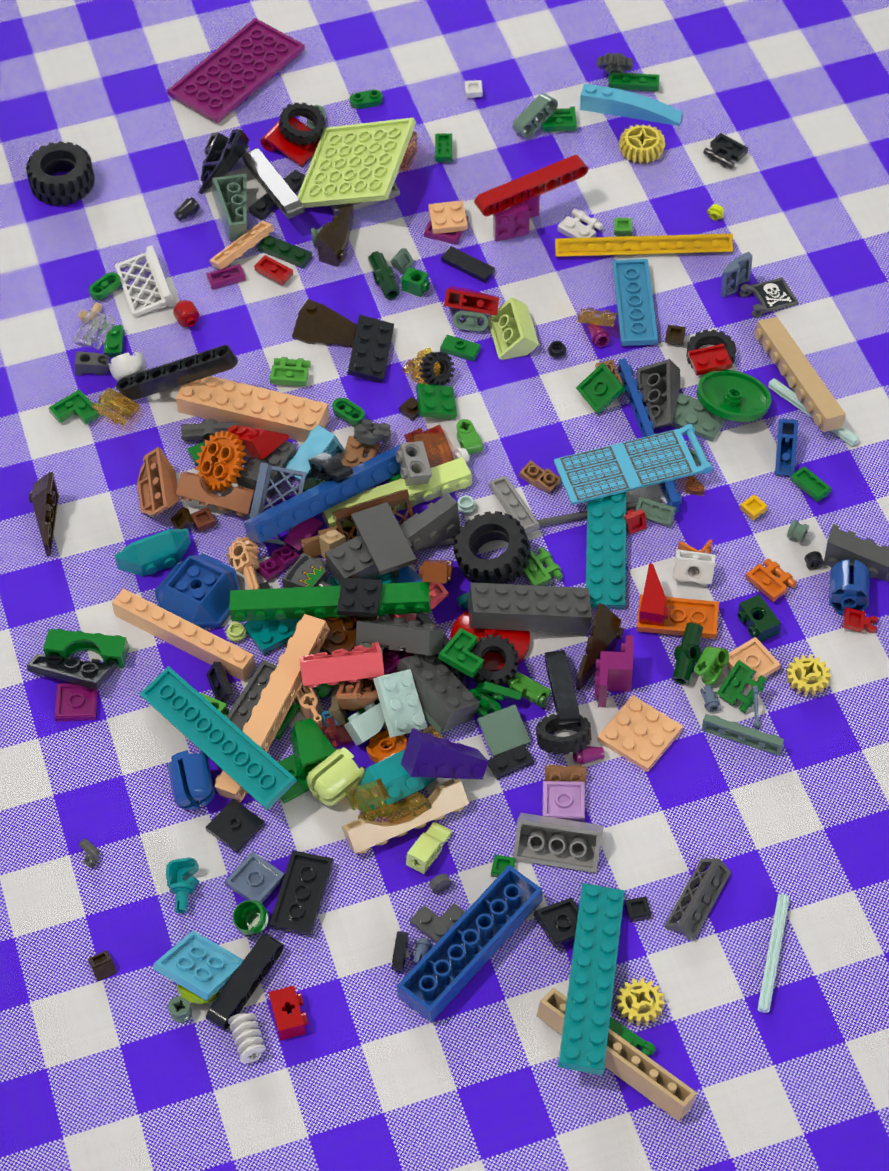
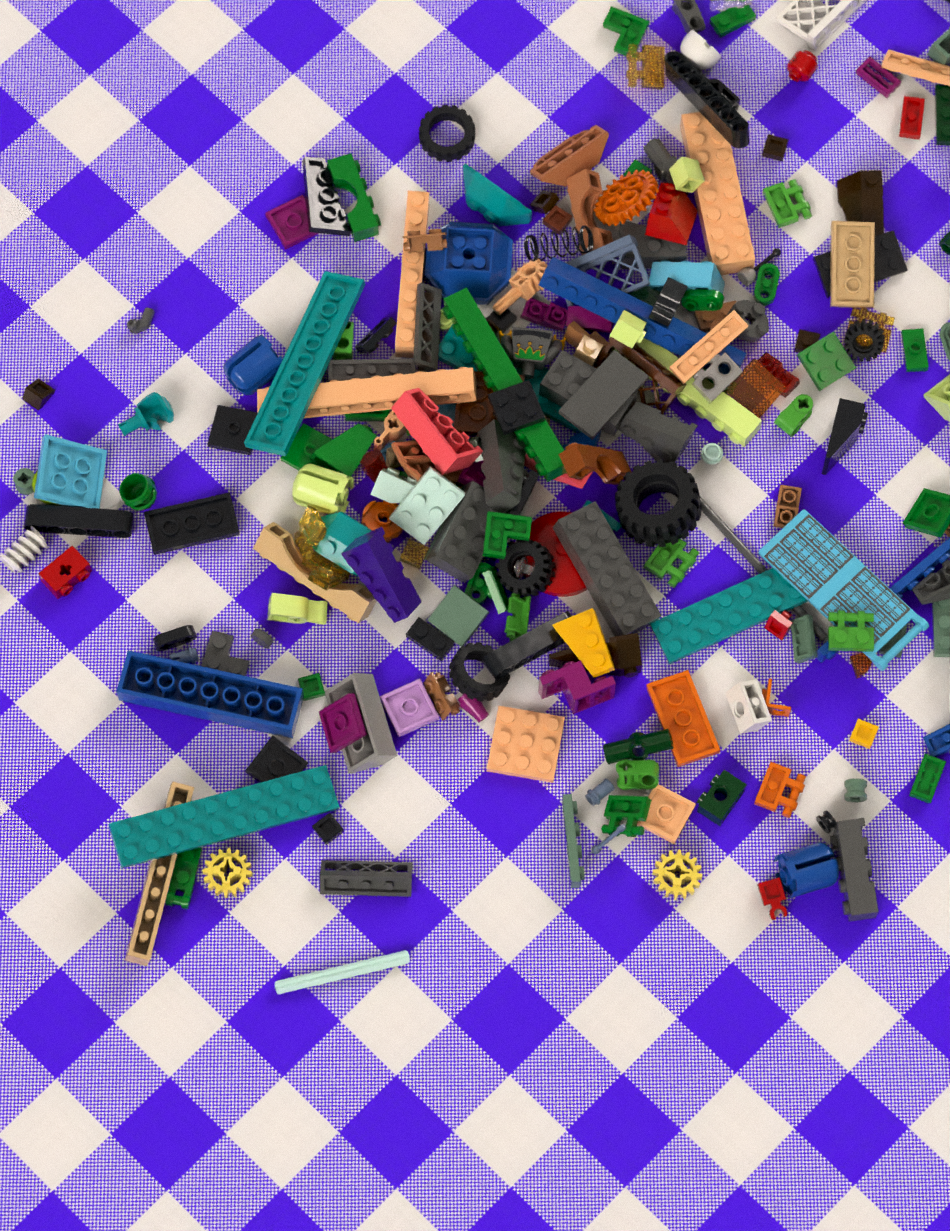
camera: 60 degrees right, 15 degrees up
(45, 504) = (491, 71): dark brown wedge -> none
(78, 576) = (447, 152): none -> black tyre
(163, 610) = (433, 239): none -> medium nougat hinge
(229, 413) = (687, 174): none -> yellowish green brick
(242, 641) = (427, 327): none -> dark grey fence
(243, 357) = (775, 147): none -> dark brown plate
(245, 500) = (580, 242): none -> black piece
(254, 878) = (185, 475): sand blue plate -> none
(333, 419) = (748, 274): none -> light grey hinge
(338, 499) = (628, 329): none -> yellowish green brick
(341, 447) = (702, 300): none -> green plate
(371, 349) = (852, 264): none -> tan tile
(387, 455) = (708, 347): none -> light nougat plate
(461, 452) = (768, 419): white plate -> none
(493, 661) = (522, 568): none -> clear plate
(503, 413) = (848, 422): none -> black slope
(513, 503) = (735, 499): light grey tile -> none
(553, 852) = (342, 723): none -> magenta tile
(585, 641) = (587, 641): none -> yellow wing
(653, 604) = (680, 684): red slope -> none
(677, 475) = (850, 638): none -> bright green plate

